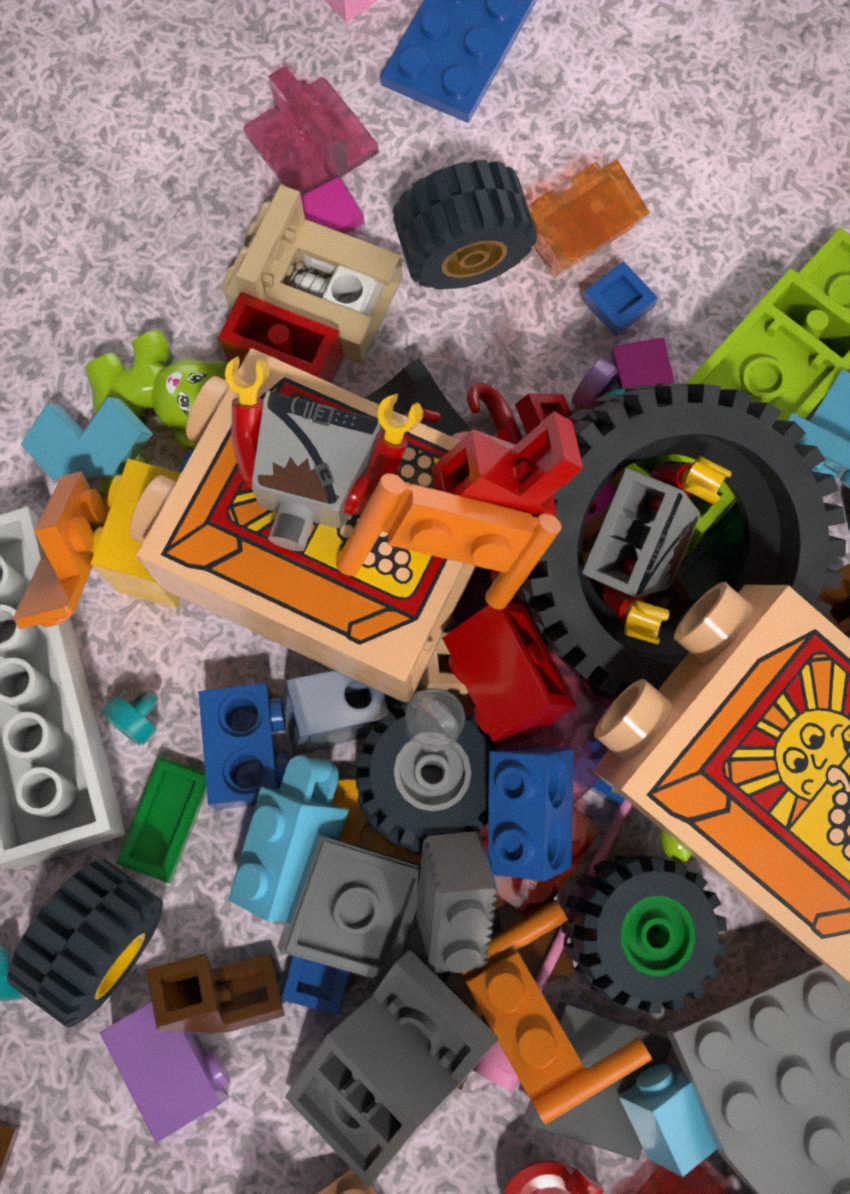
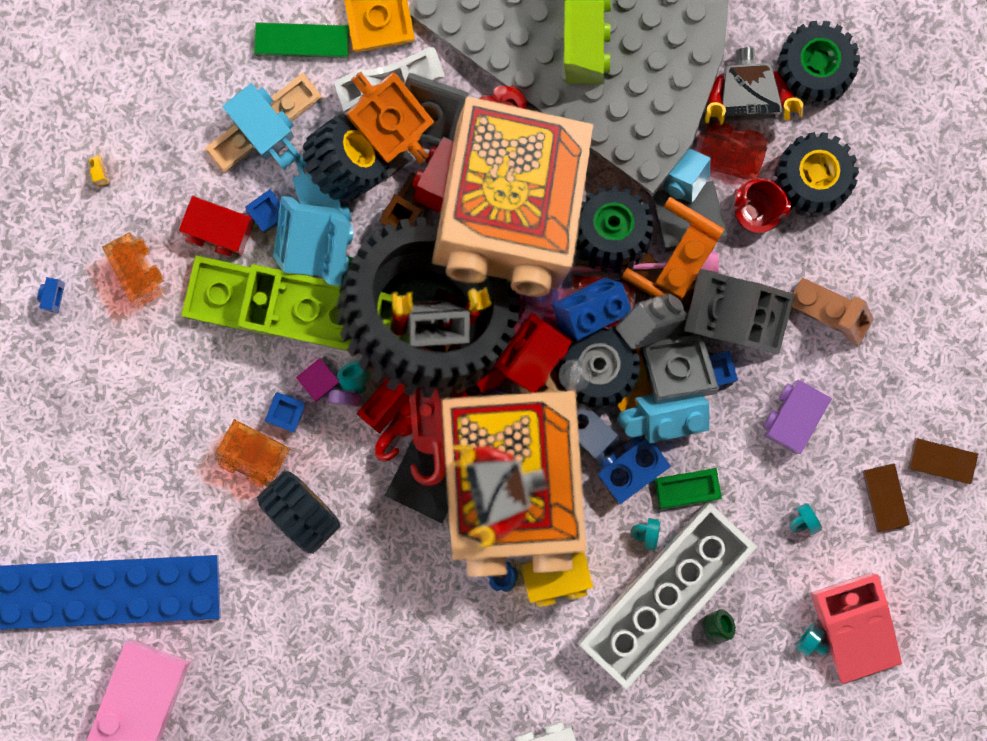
camera: 125 degrees left, 10 degrees up
(67, 542) = (594, 605): orange bracket -> none
(84, 942) = (766, 482): black wheel -> none
(100, 450) = (534, 653): medium azure tile -> none
(152, 385) = (468, 611): lime animal -> none
(203, 999) = (754, 410): reddish brown slope -> none
(281, 335) = (416, 573): red brick -> none
(309, 133) = (279, 636): clear pink bracket -> none
(332, 207) = (317, 599): dark pink tile -> none
(334, 263) = (364, 610): tan brick -> none
(454, 530) = (503, 411): orange plate -> none
(515, 477) = (462, 390): red brick -> none

